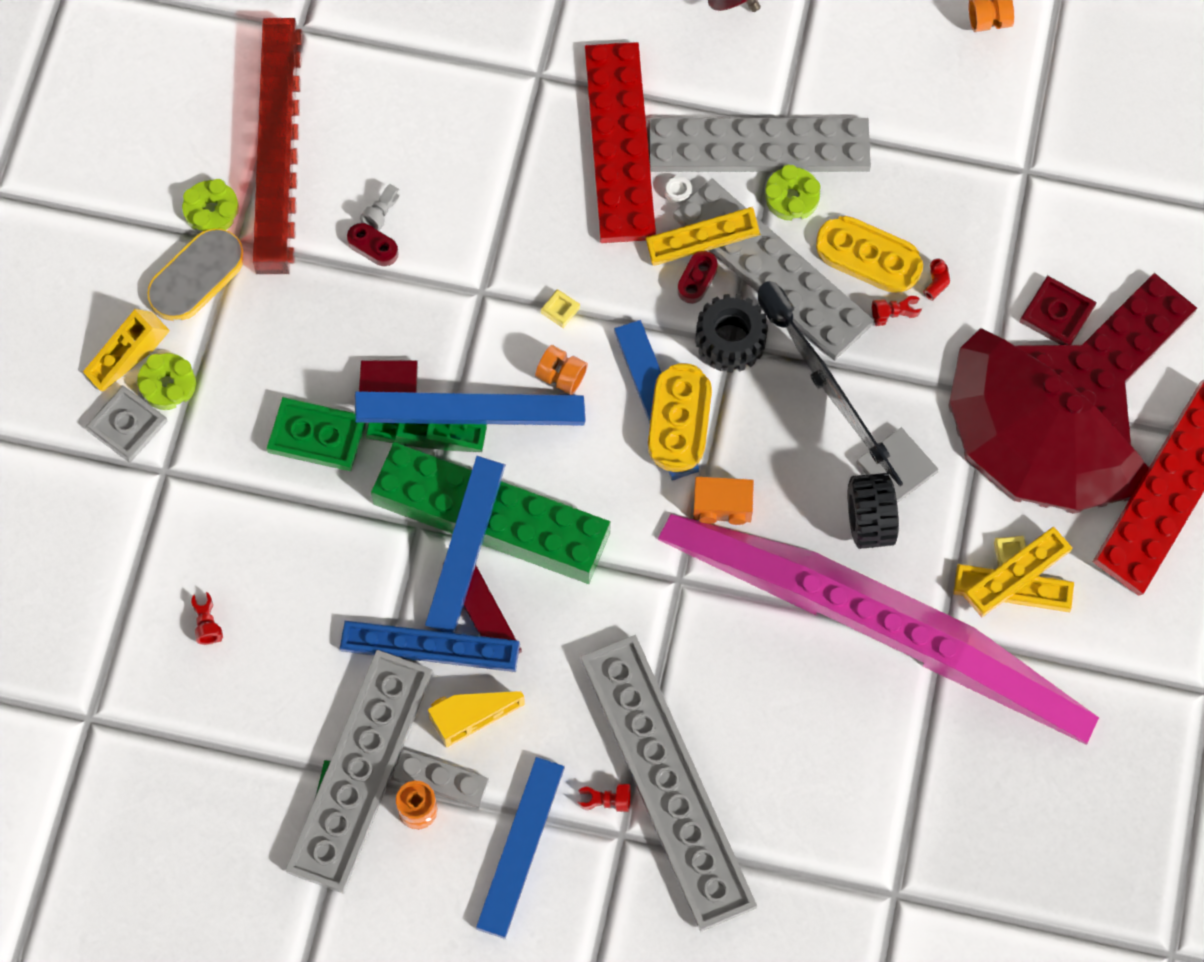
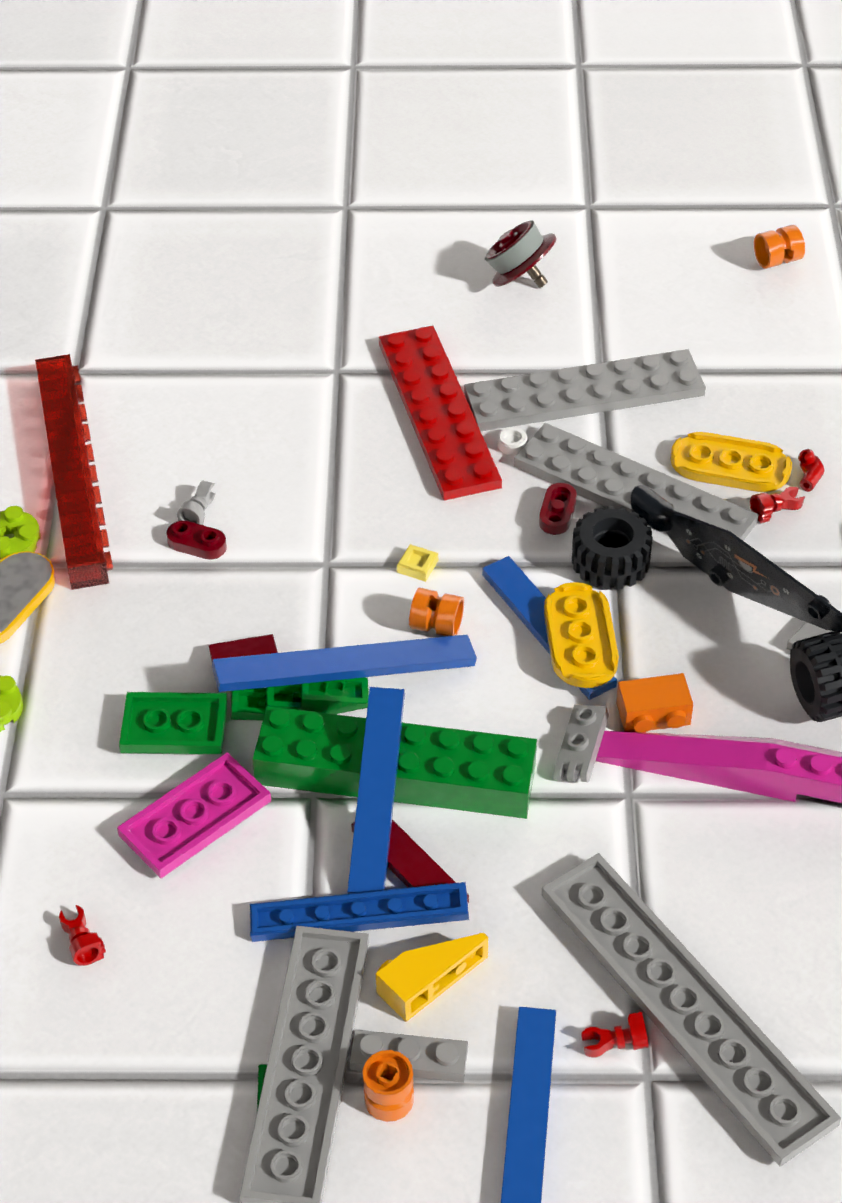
camera: 10 degrees left, 20 degrees down
(316, 527) = (194, 814): none -> dark pink plate
(652, 524) = (581, 742): none -> light grey hinge
(703, 236) = (553, 469): yellow tile -> none
(795, 207) = (625, 411): lime plate -> none

